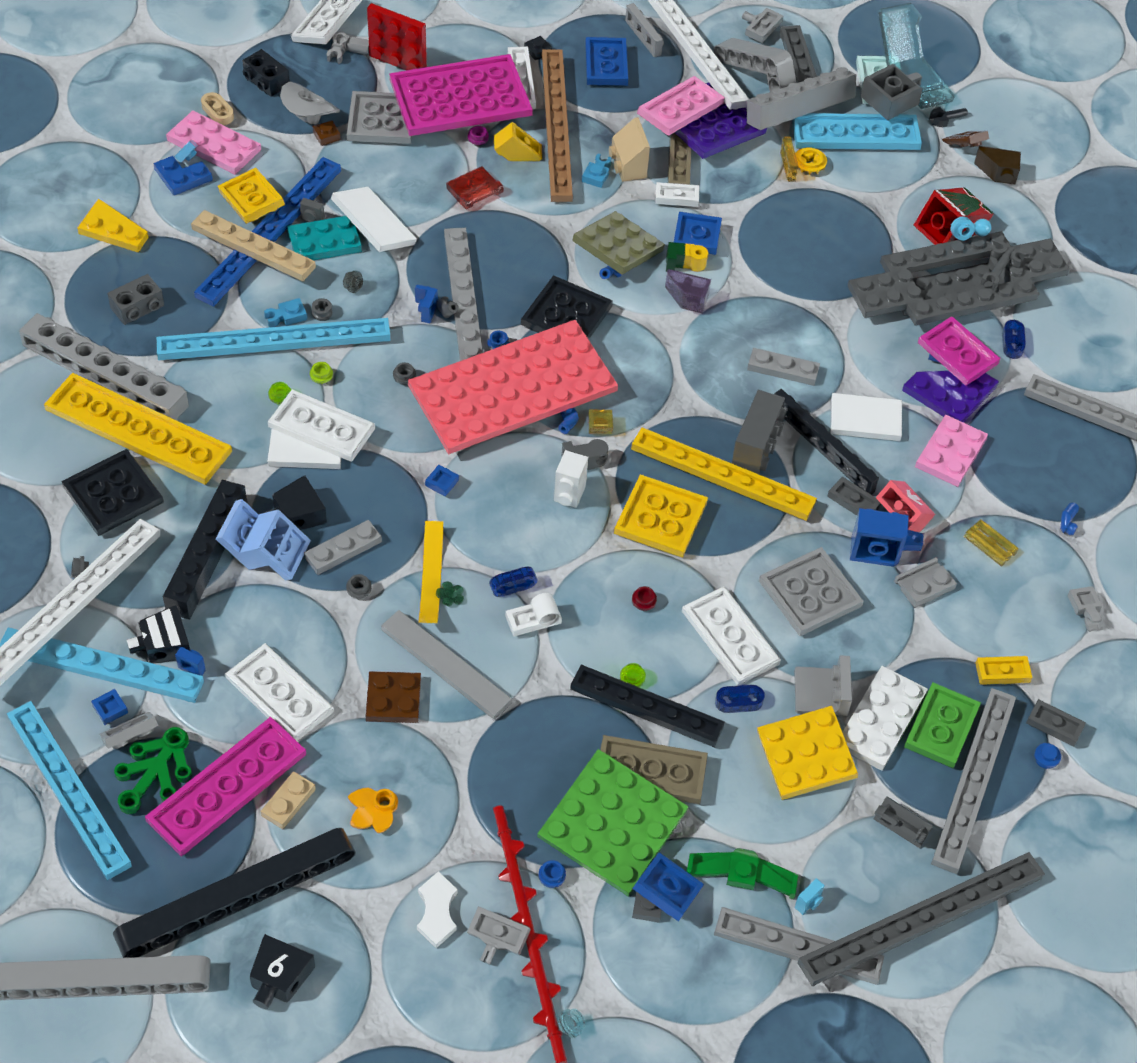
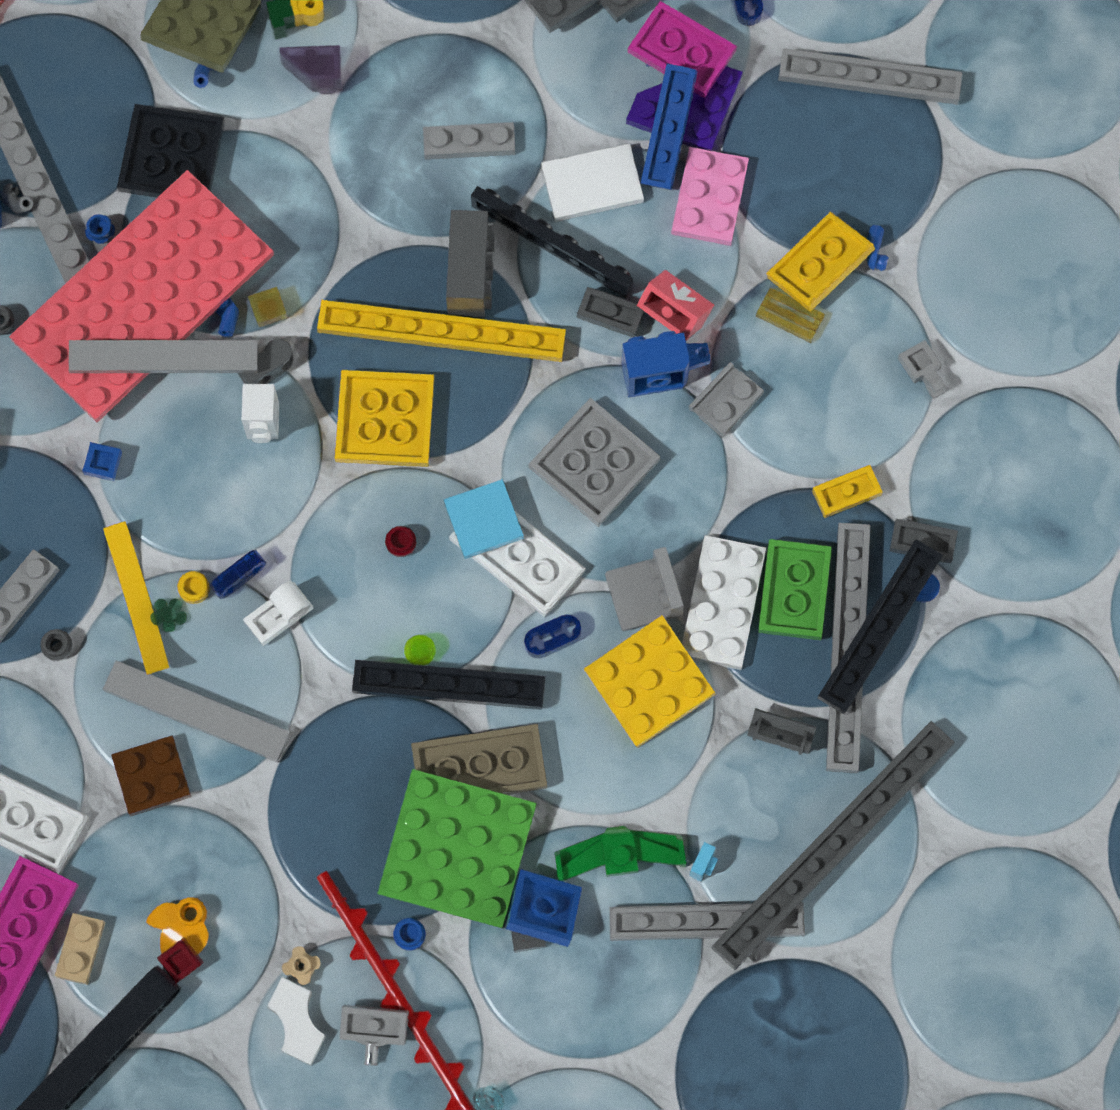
camera: 15 degrees left, 20 degrees up
(362, 831) = (180, 960): none -> dark red tile
(460, 875) = (300, 956): none -> tan plate
(476, 582) = (193, 587): none -> yellow tile
(513, 422) = (163, 356): none -> light grey tile
(713, 600) = (483, 519): none -> medium azure tile
(935, 393) = (669, 126): none -> blue plate
(1005, 768) = (880, 626): none -> black plate
(1024, 512) = (820, 261): none -> yellow tile

